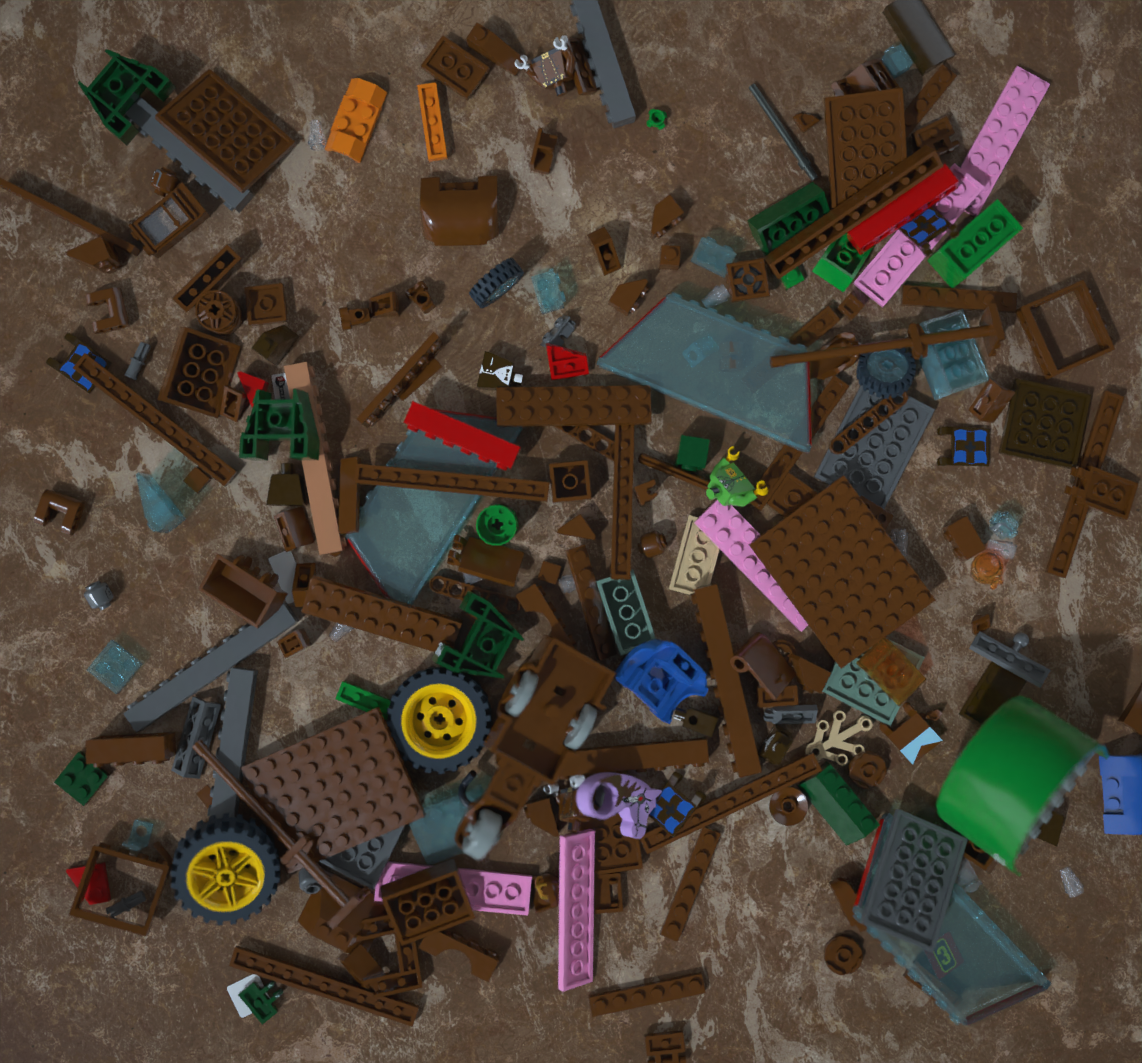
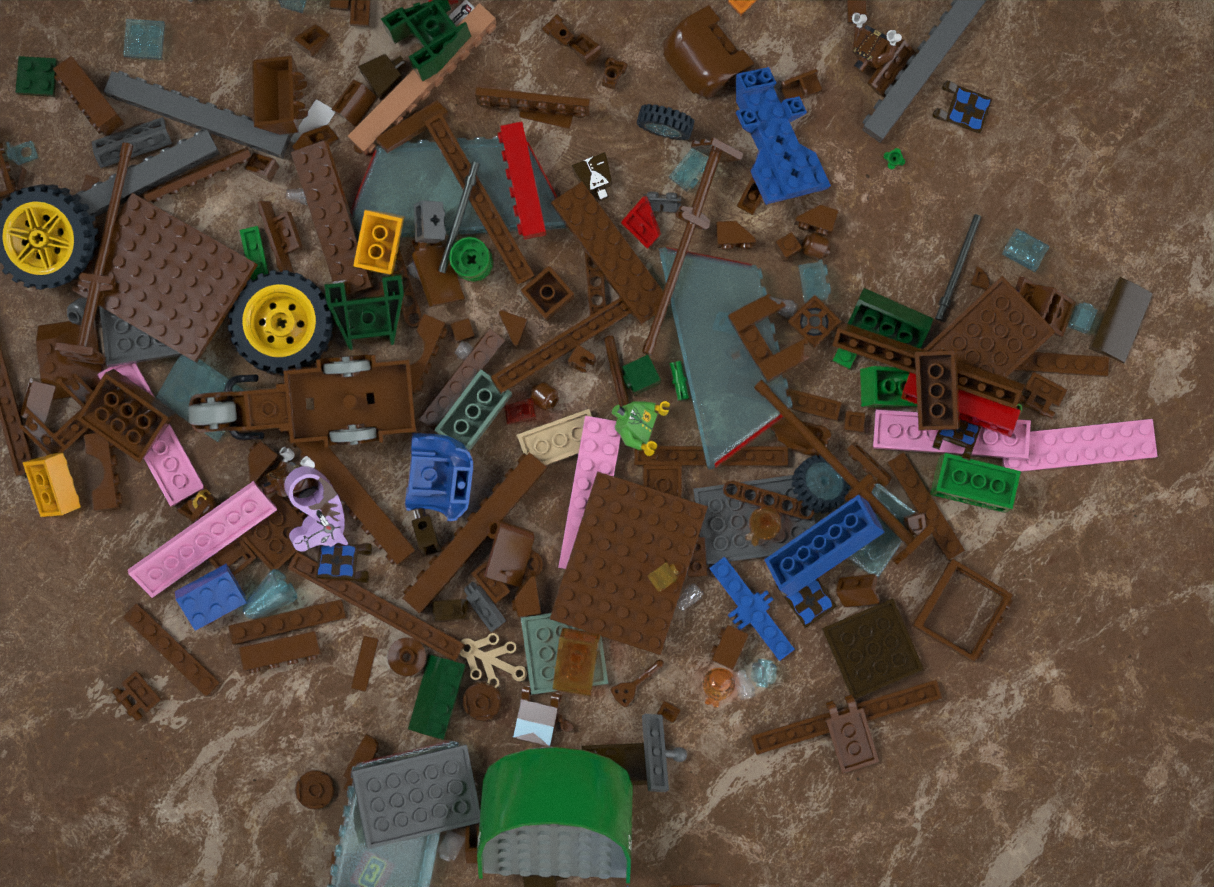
camera: 55 degrees right, 5 degrees down
(215, 527) = (311, 40): none -> reddish brown slope
(262, 709) = (190, 178): none -> reddish brown plate
(363, 666) = (281, 233): none -> reddish brown bracket
(429, 591) = (379, 241): none -> light orange slope
(432, 479) = (470, 181): none -> pearl dark grey bar
(442, 537) = (429, 222): none -> dark grey brick
(442, 1002) = (52, 485): none -> light orange slope
(594, 317) = (693, 216): none -> reddish brown piece
(600, 211) = (782, 164): none -> blue piece
(628, 935) = (210, 597): none -> blue brick
(651, 572) = (520, 411): none -> clear red slope
(656, 30) = (966, 109): none -> dark brown flag
(660, 883) = (269, 595): none -> clear light blue cone
(685, 235) = (815, 246): none -> reddish brown head
(712, 906) = (280, 651): none -> reddish brown brick
(716, 424) = (679, 380): none -> green pin
(737, 341) = (744, 323): none -> reddish brown wedge
(767, 843) = (364, 663): none -> reddish brown sticker
(808, 67) = (1025, 250): none -> clear light blue bracket
(878, 552) = (663, 576): none -> clear yellow brick
(885, 218) = (937, 390): none -> reddish brown brick
(887, 439) = (763, 524): none -> clear orange hat
(894, 319) = (869, 464): none -> reddish brown plate
(938, 639) = (631, 686): none -> reddish brown piece
(943, 402) = (824, 545): none -> blue brick
(944, 498) = (751, 608): none -> blue hinge
(969, 316) = (915, 523): none -> reddish brown plate

